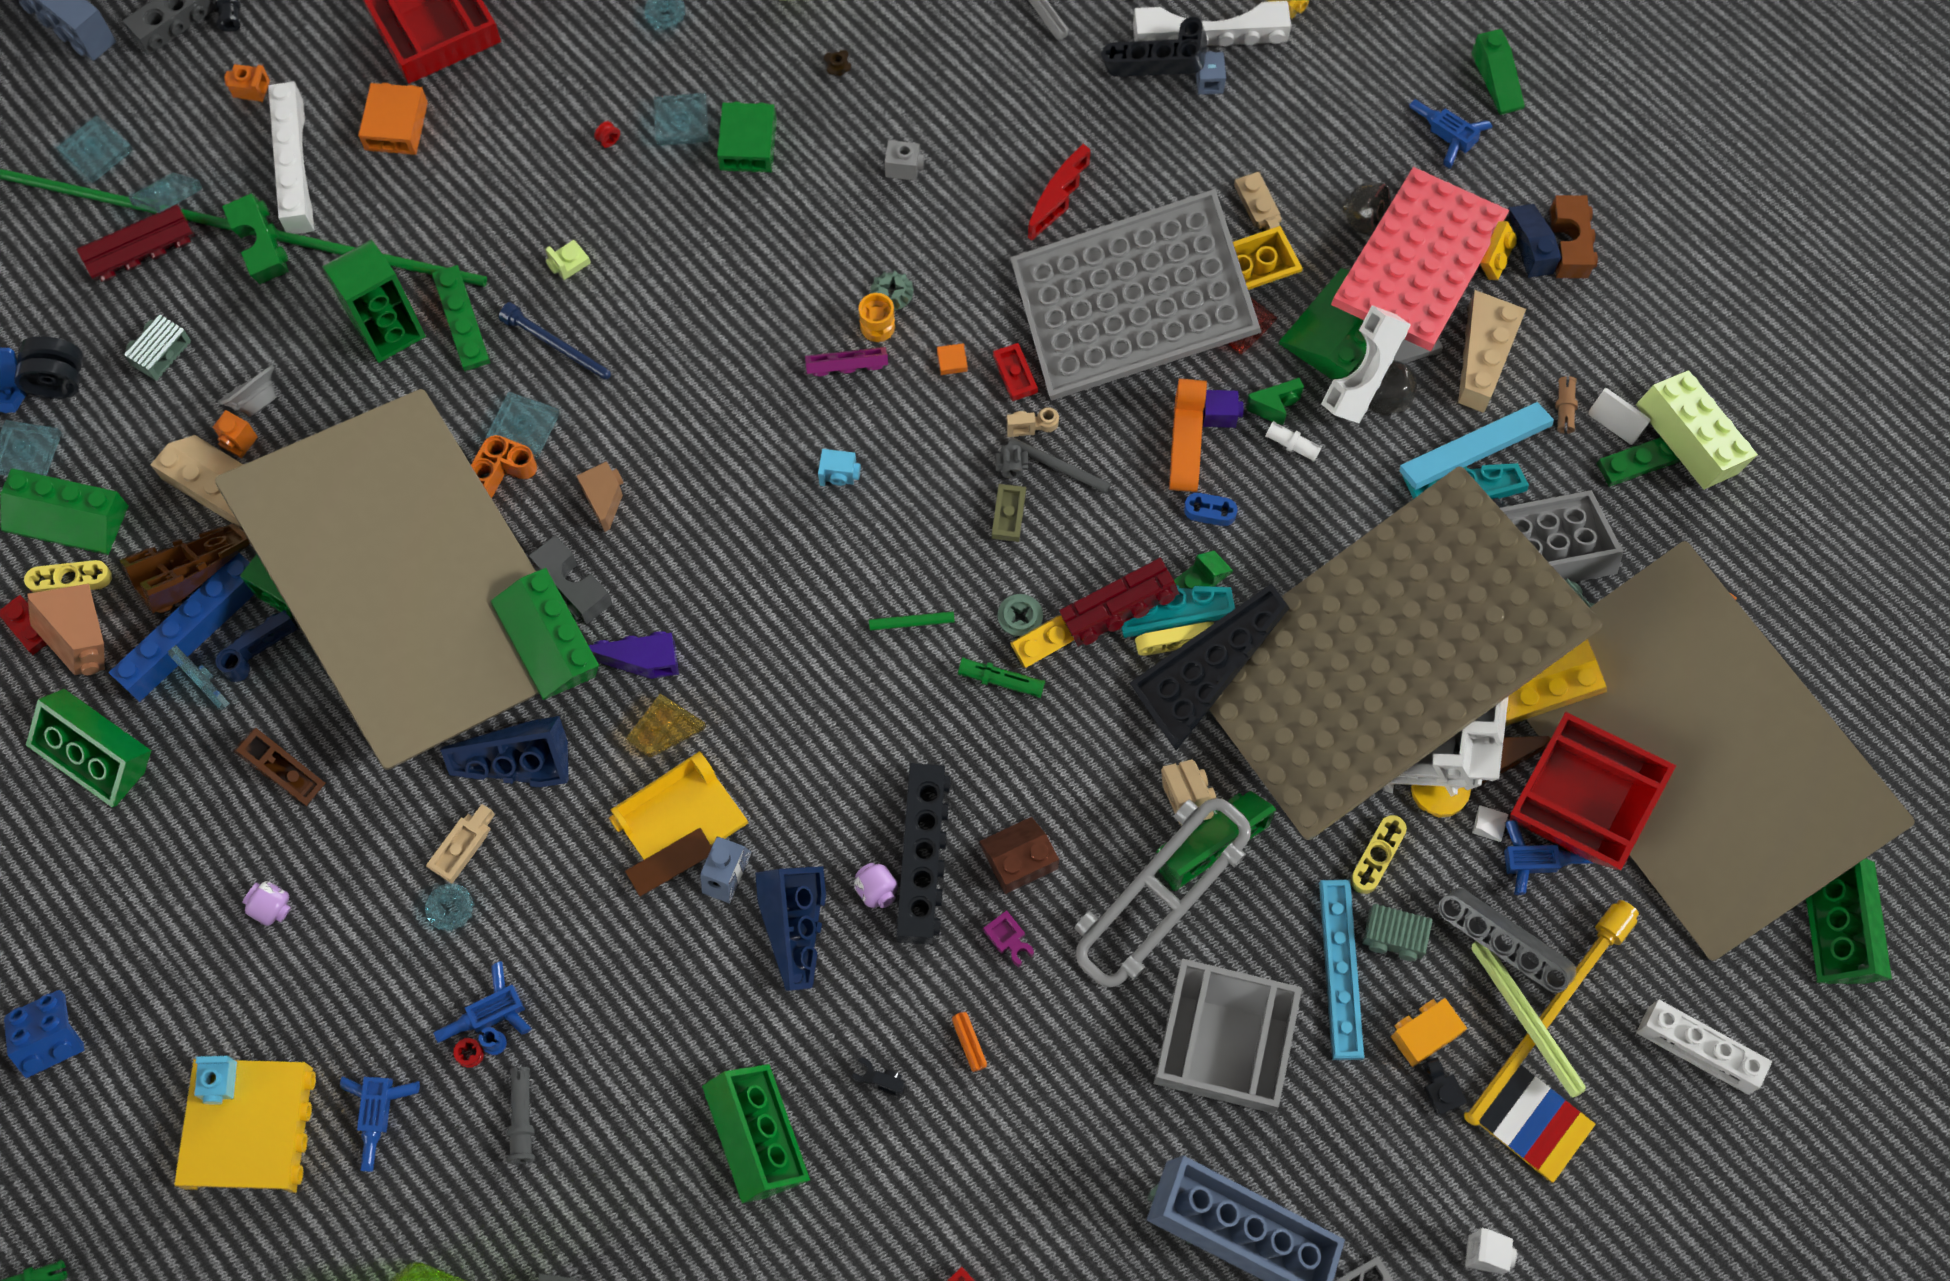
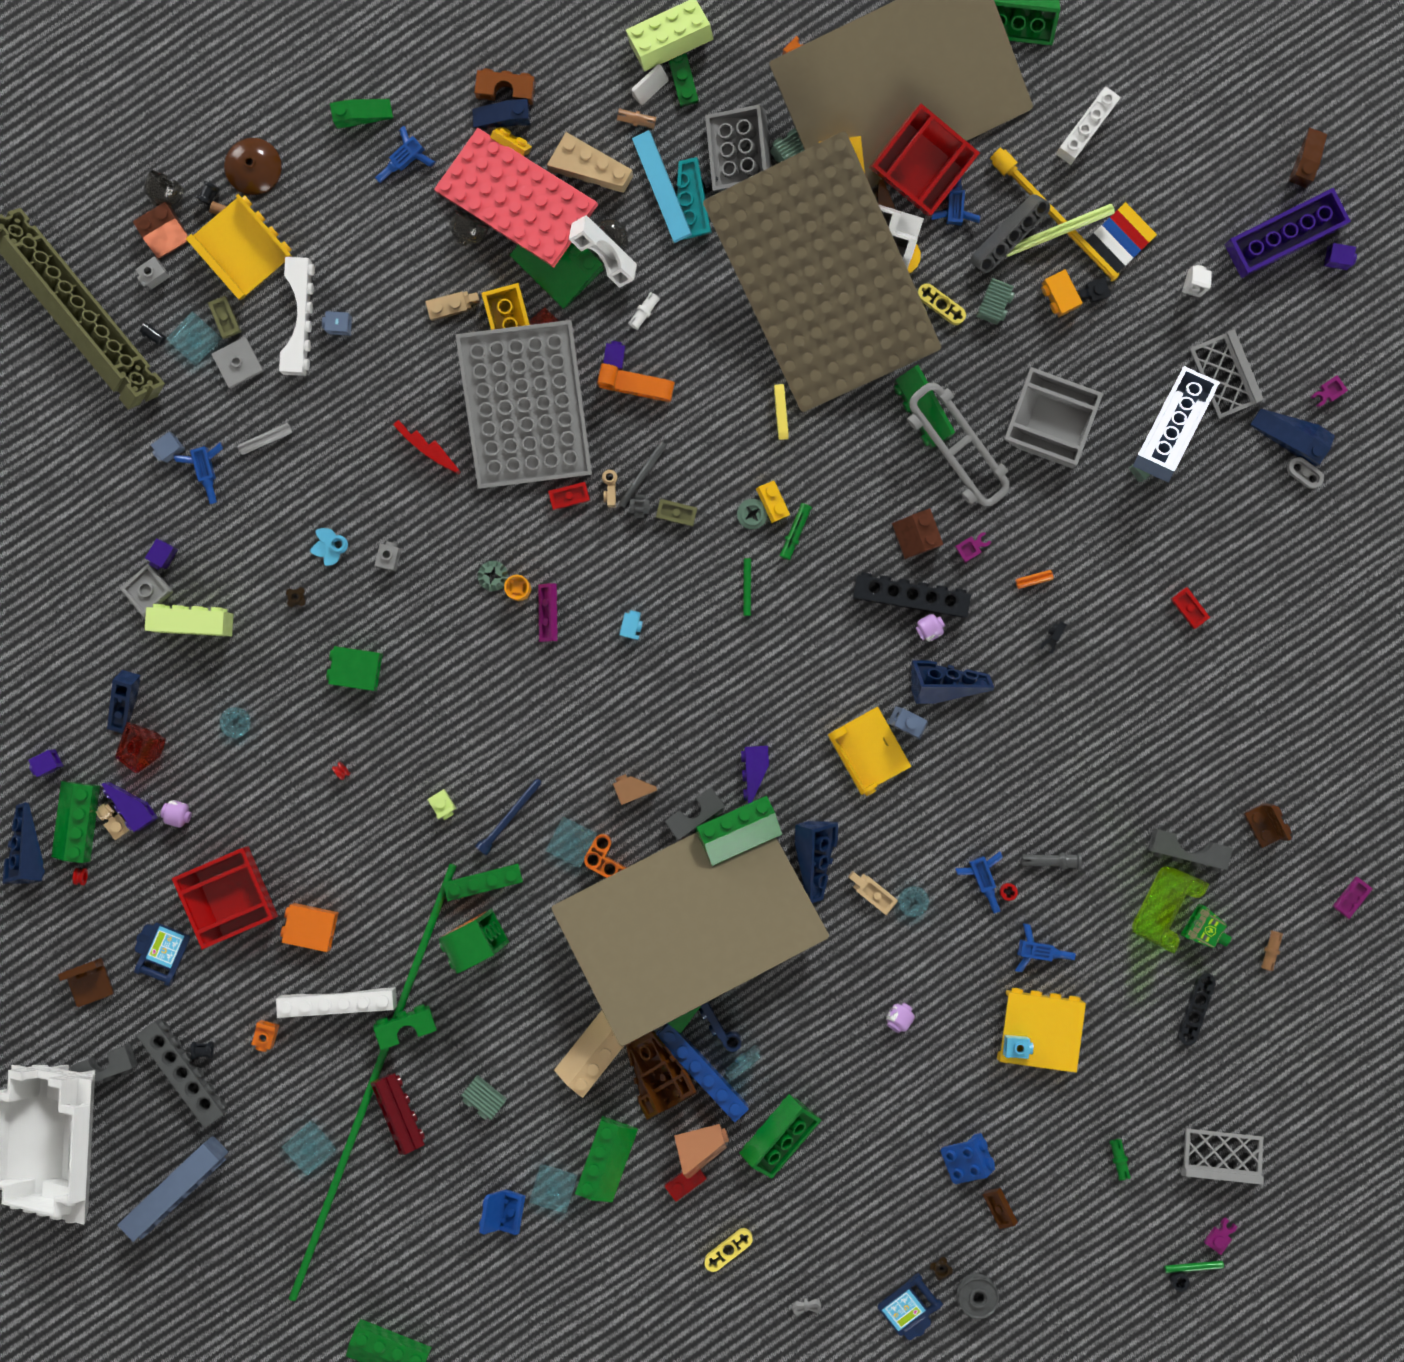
camera: 80 degrees left, 20 degrees up
(48, 367) = (497, 1171): black wheel -> none
(56, 572) = (659, 1168): light yellow beam -> none
(165, 192) = (359, 1093): clear light blue plate -> none
(234, 434) = (559, 1042): orange brick -> none
(252, 395) = (529, 1030): light grey hat -> none
(279, 766) = (807, 1011): reddish brown slope -> none
(492, 1048) = (1001, 872): blue pin -> none
(663, 727) = (806, 757): clear yellow wing -> none
(669, 862) = (900, 758): reddish brown sticker -> none
(681, 119) = (333, 716): clear light blue plate -> none
(755, 1132) = (1078, 716): green slope -> none
(909, 92) = (327, 546): none -> medium azure plate
(952, 359) = (552, 539): orange tile -> none
(1119, 602) = (755, 446): dark red brick -> none
(1148, 57) = (320, 362): black beam -> none
(1185, 783) = (891, 419): tan brick -> none
(1187, 608) = (759, 416): teal wing -> none
(1196, 674) = (811, 400): black wing -> none
(1207, 571) = (736, 388): green slope -> none
(1210, 509) = (683, 374): blue beam -> none
(1270, 401) = (615, 322): green slope -> none
(1341, 970) = (1012, 340): medium azure tile -> none
(1490, 823) = (928, 229): white slope -> none

